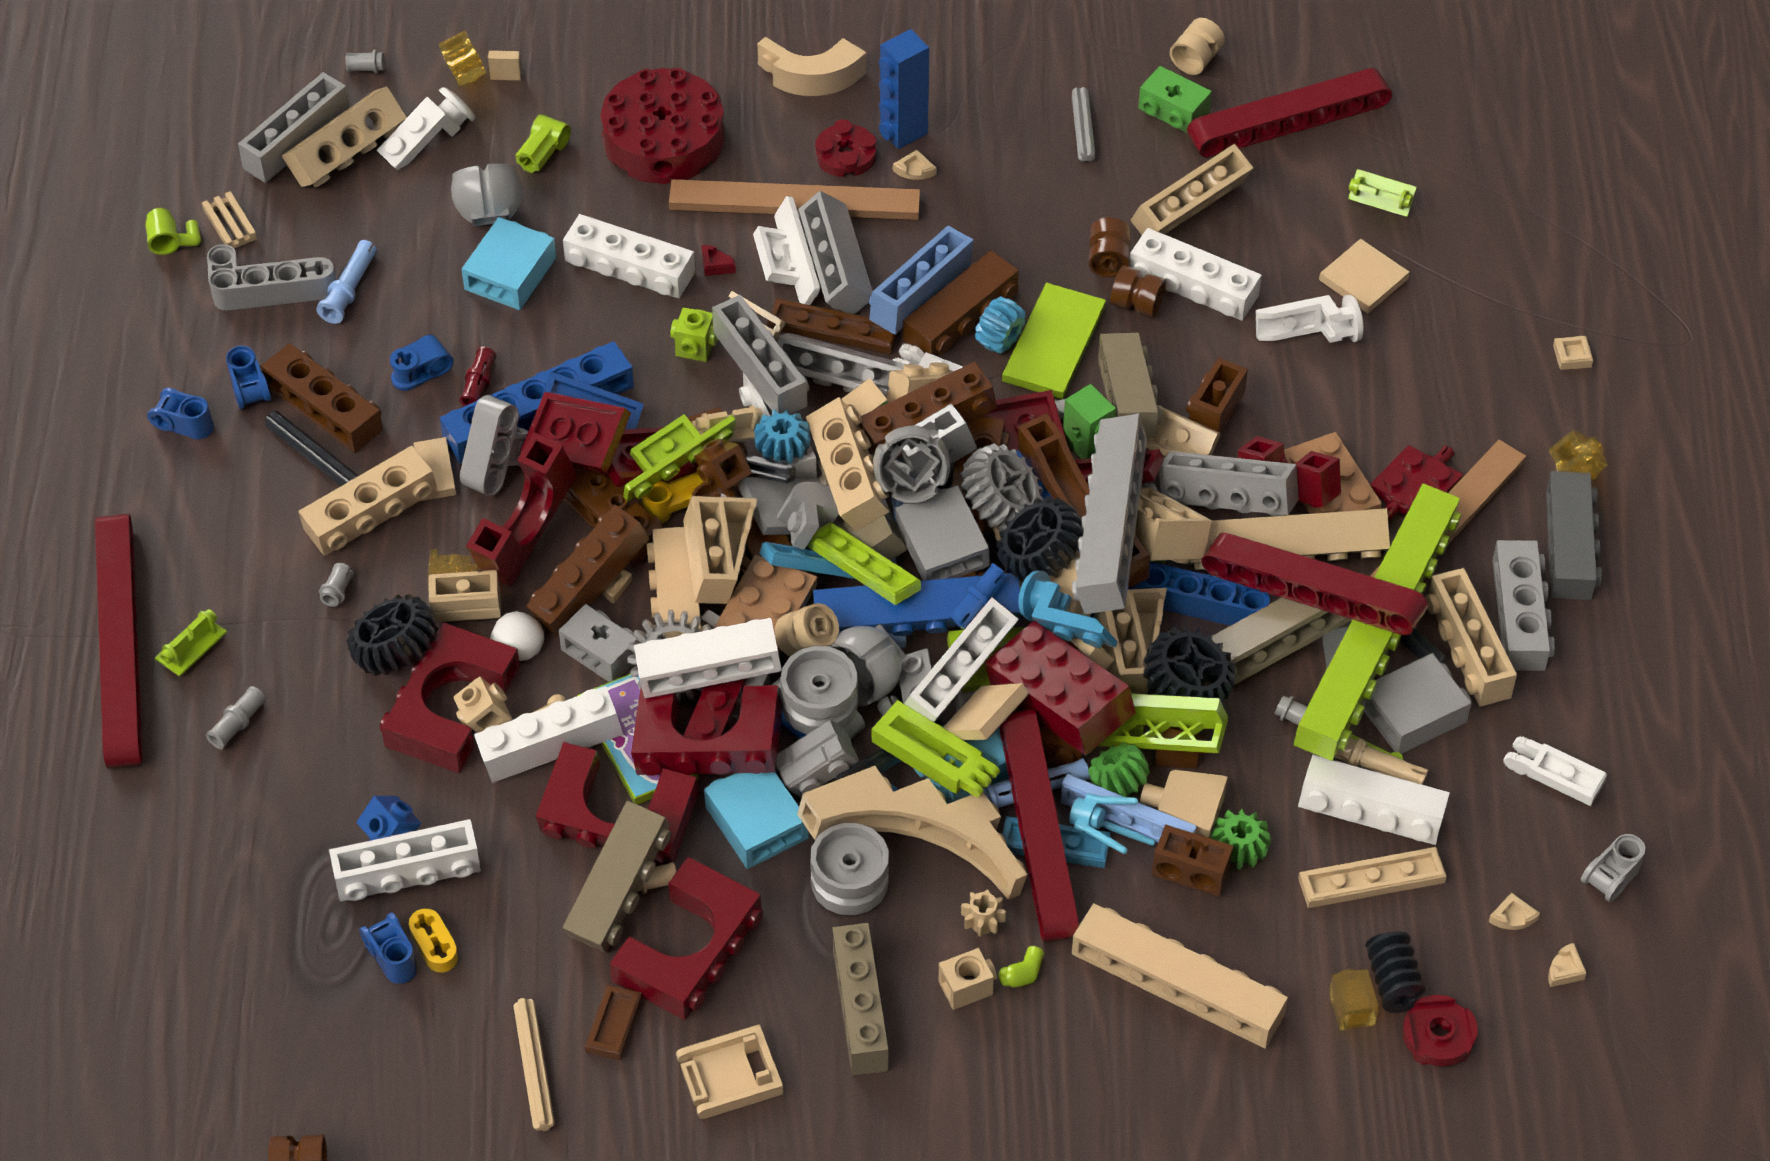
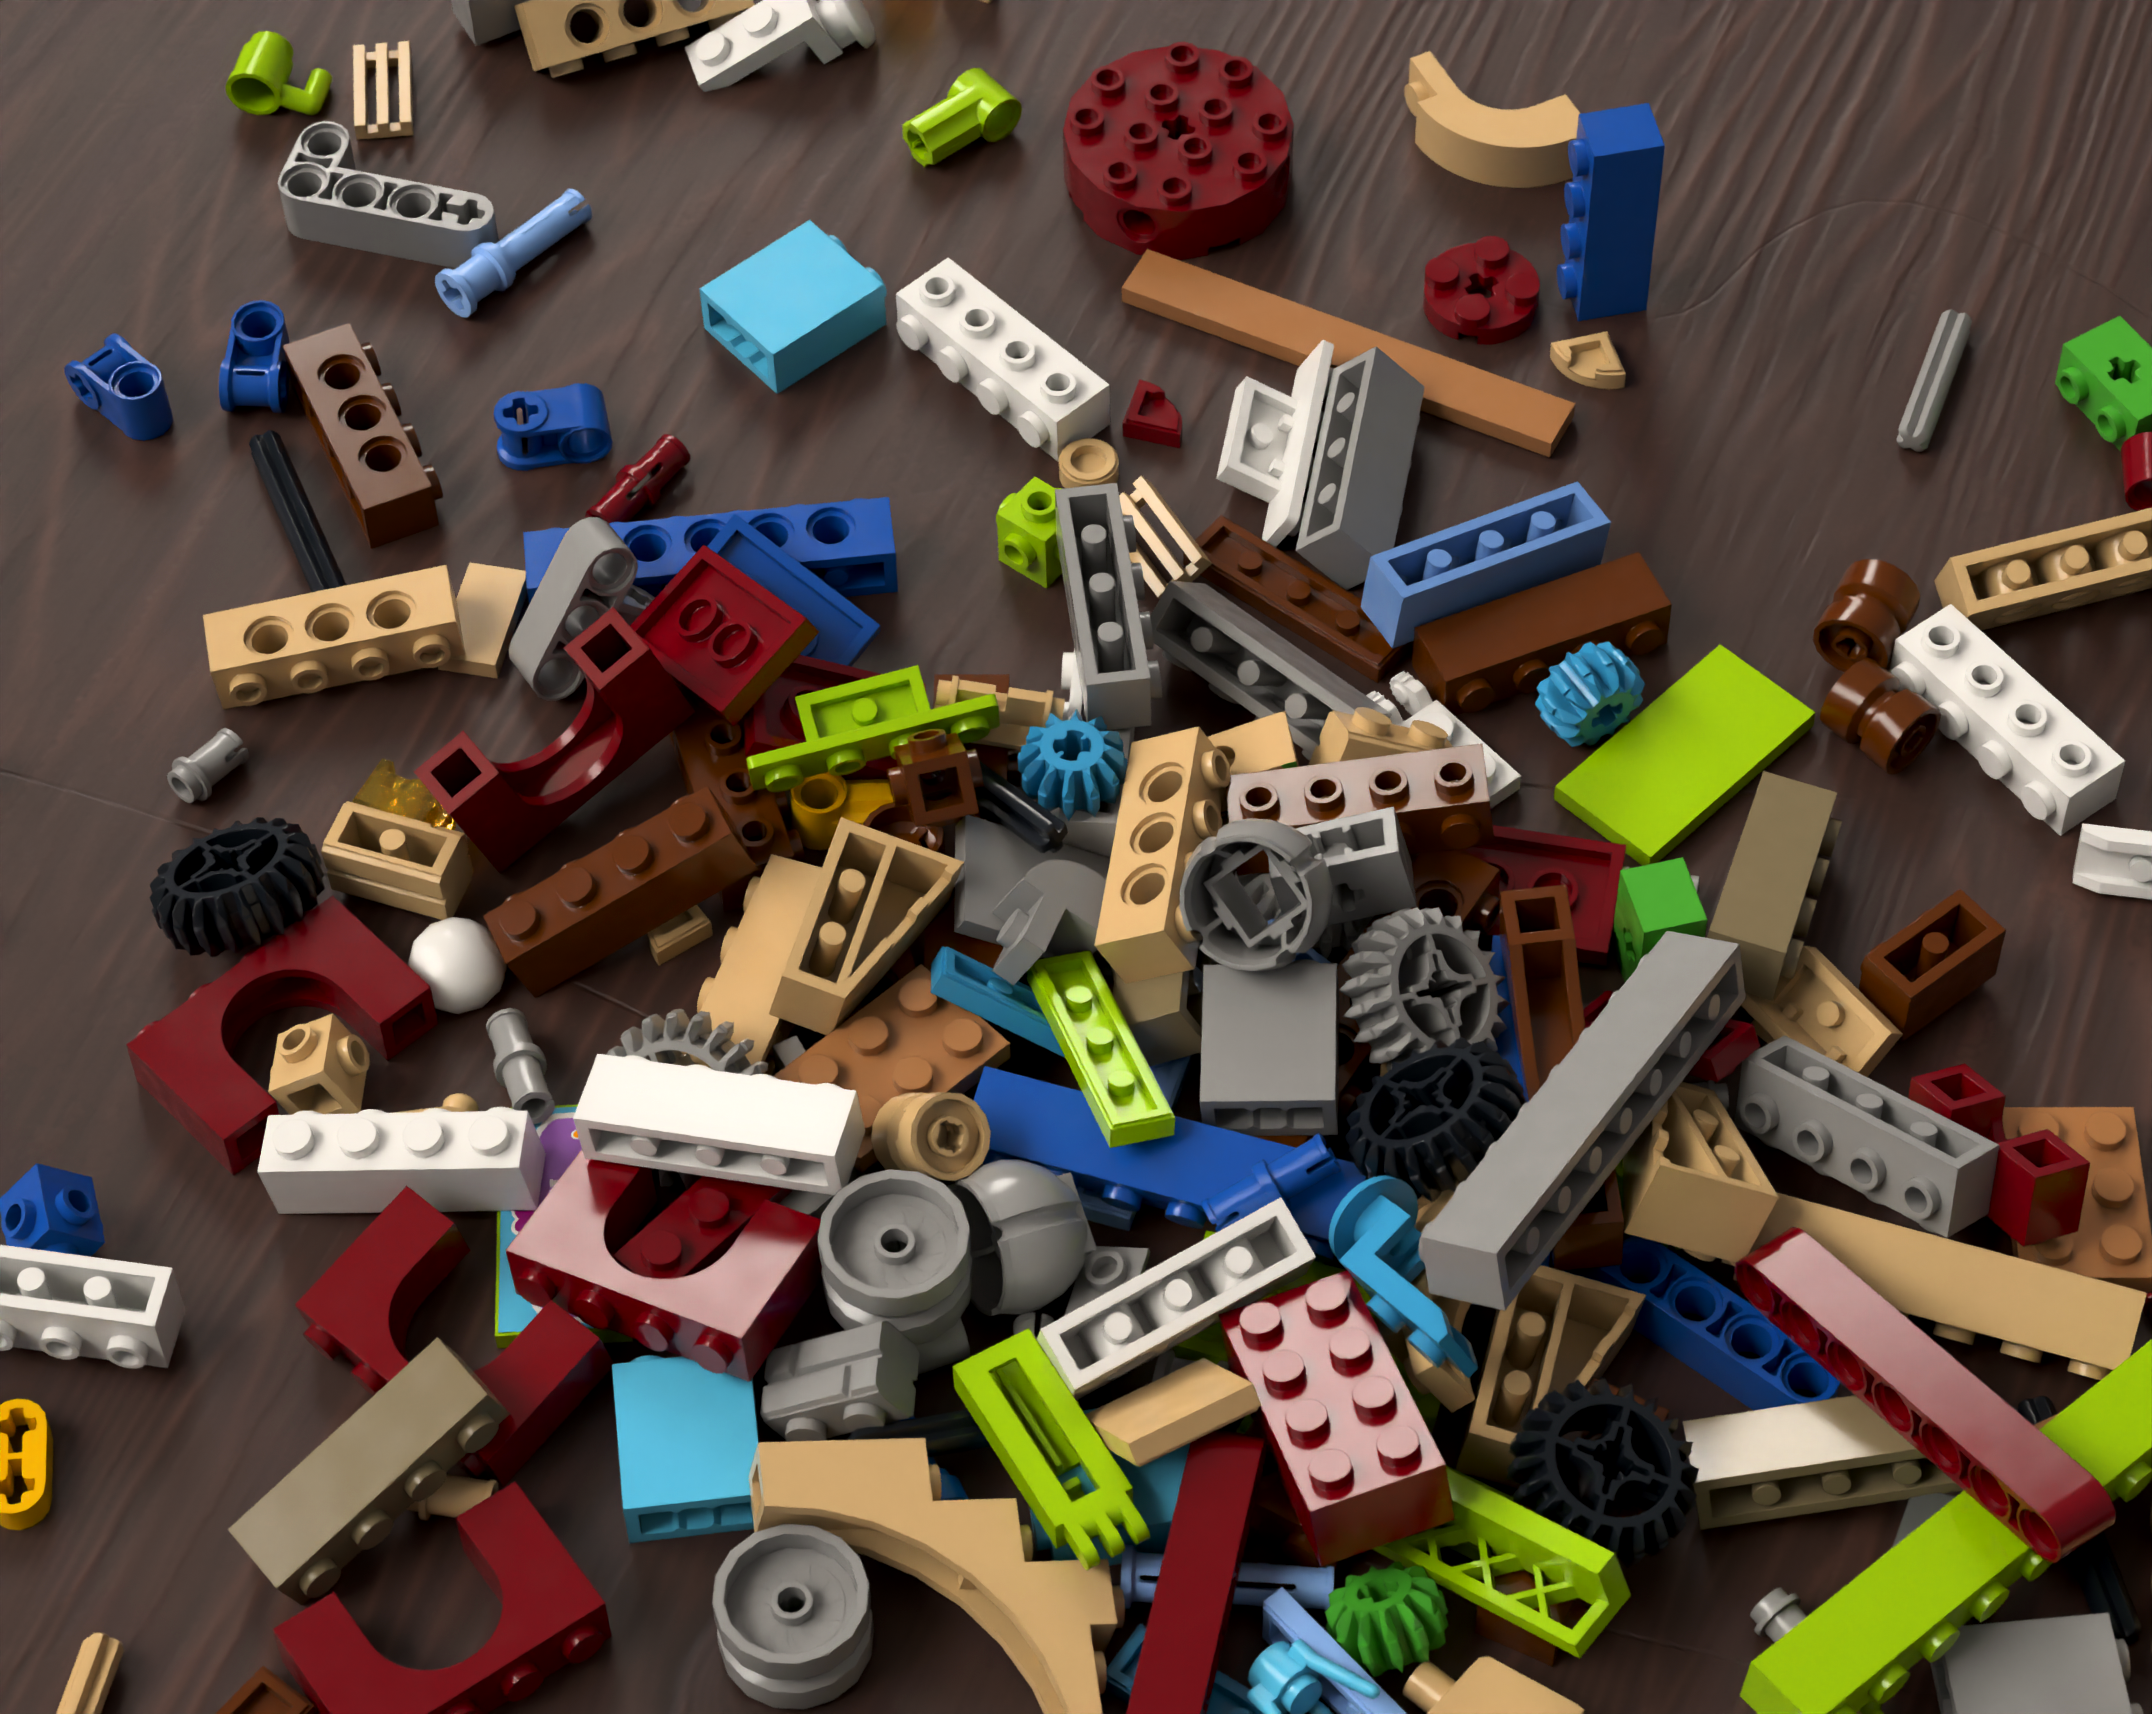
camera: 25 degrees right, 0 degrees up
(486, 193) = (811, 172): light grey piece -> none
(576, 670) = (520, 1064): none -> light grey pin
(597, 643) = (575, 1015): light grey brick -> none
(697, 295) = (1088, 463): none -> tan tile

